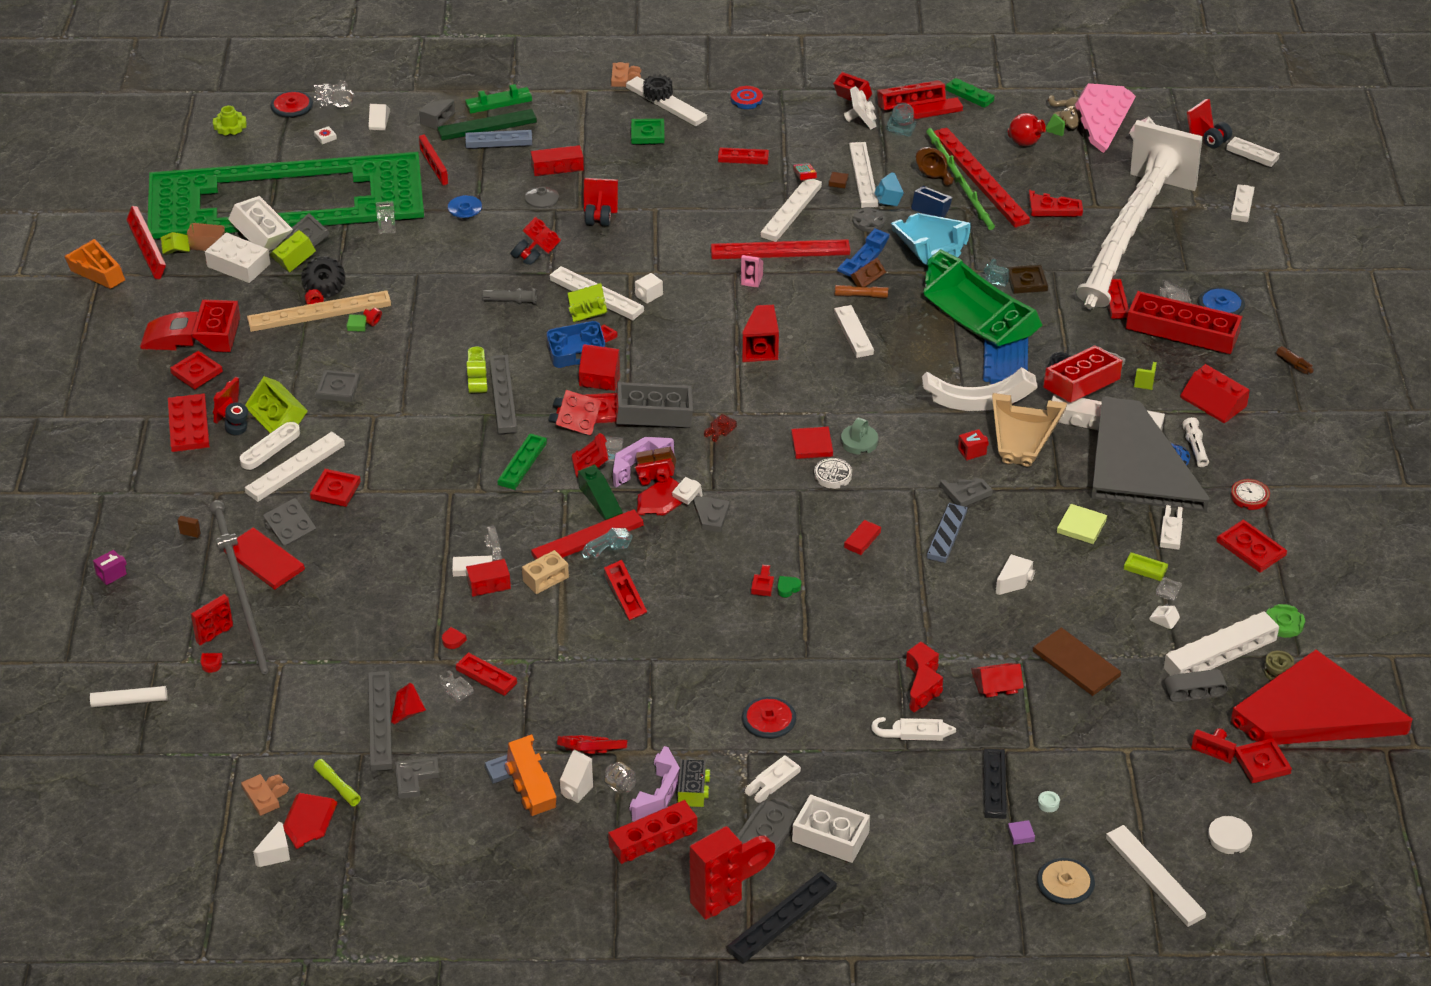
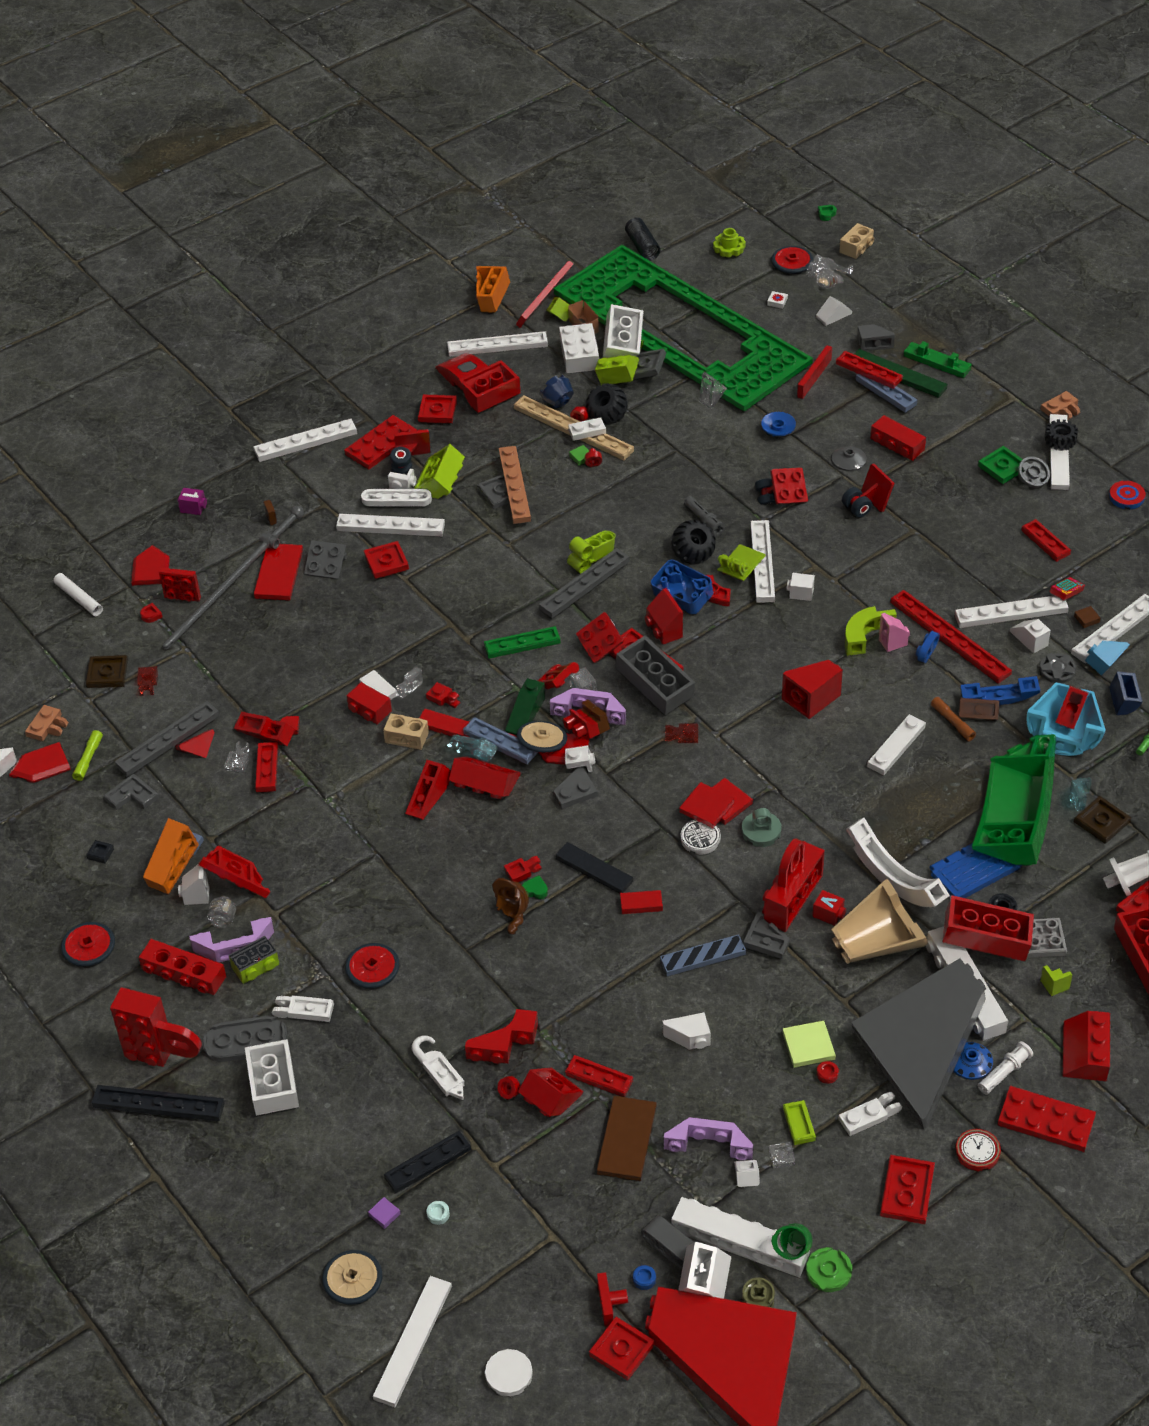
camera: 55 degrees right, 5 degrees up
(123, 465) = (305, 440): none -> white plate
(153, 635) = (147, 566): none -> red tile
(162, 300) = (497, 343): none -> white tile
(173, 161) = (648, 237): none -> black piece
(247, 723) = (106, 671): none -> dark brown tile
(256, 432) = (402, 481): none -> white bracket
(262, 60) = (826, 212): none -> green tile
(276, 293) = (557, 391): none -> dark blue cone
(290, 700) = (146, 679): none -> clear red plate
(321, 62) = (856, 241): none -> tan brick
(337, 302) = (587, 429): none -> white plate
(347, 372) = (514, 485): none -> nougat plate
(442, 653) = (264, 728): none -> red slope
(459, 827) = (100, 851): none -> black tile
(470, 132) = (869, 369): none -> red tile
(526, 534) = (442, 694): none -> red plate
(534, 314) = (693, 542): none -> black wheel
(558, 883) = (88, 944): none -> red wheel
(631, 521) = (504, 741): none -> sand blue tile
(643, 498) = (542, 736): none -> tan wheel
(647, 552) = (483, 777): none -> red slope
(674, 121) = (1032, 472): none -> dark grey wheel
(725, 287) = (860, 625): none -> lime arch
(781, 261) = (929, 644): none -> blue plate
(794, 600) = (512, 900): none -> reddish brown piece
(802, 544) = (594, 868): none -> black tile
(811, 450) = (706, 805): none -> red tile
(826, 210) = (1032, 634): none -> white slope
(922, 225) = (1072, 707): none -> red arch
(939, 443) = (797, 877): none -> red brick
(972, 698) = (508, 1087): none -> red tile
(1004, 646) = (599, 1076): none -> red tile
(1115, 528) = (827, 1072): none -> red tile
(1137, 603) = (721, 1131): none -> lavender slope
(1208, 718) = (644, 1277): none -> blue tile
(1240, 676) = (705, 1270): none -> white slope
(1253, 448) = (1047, 1118): none -> red plate
(1266, 608) = (792, 1233): none -> green helmet

